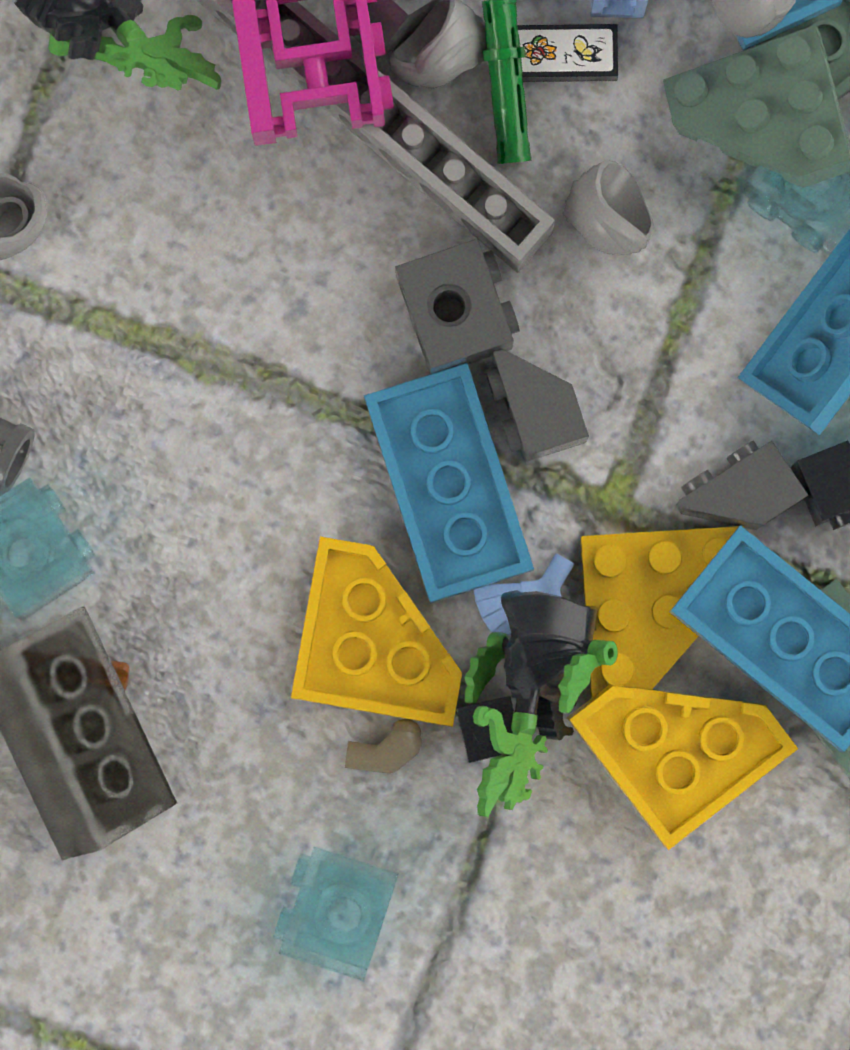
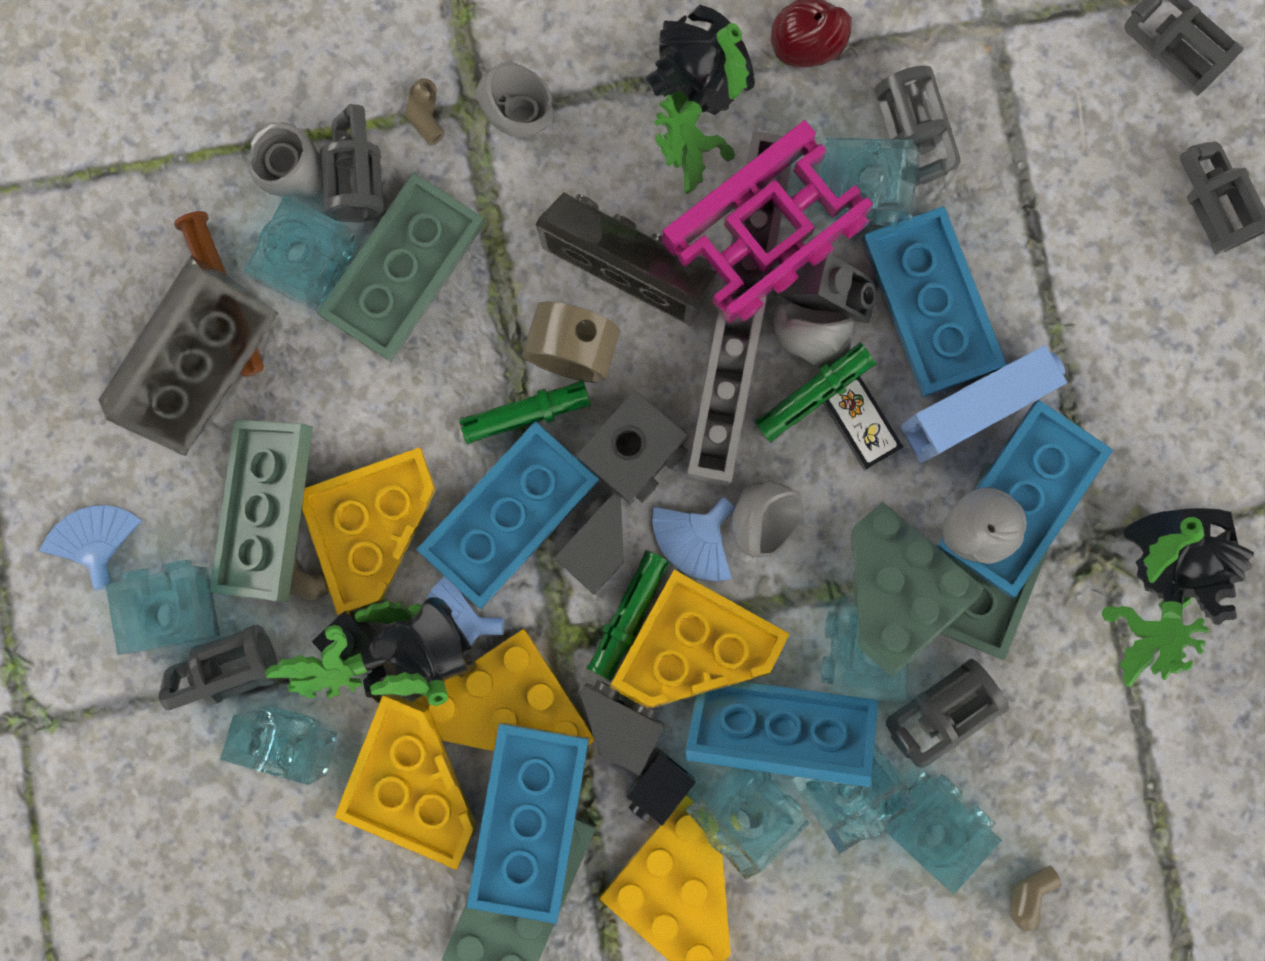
camera: 65 degrees right, 0 degrees up
(106, 447) = (402, 267): none -> sand green plate
(208, 959) = (91, 538): none -> light blue hand
(243, 196) = (625, 257): none -> clear smoke slope
(289, 745) = (261, 509): none -> sand green plate
(302, 306) = (571, 342): none -> dark tan piece
(346, 401) = (540, 407): none -> green pin
(438, 906) = (206, 675): none -> dark grey piece
(558, 860) = (279, 744): none -> clear light blue brick
(589, 302) = (694, 540): none -> light blue hand
(630, 416) = (624, 623): none -> green pin
(703, 362) = (695, 646): none -> yellow plate

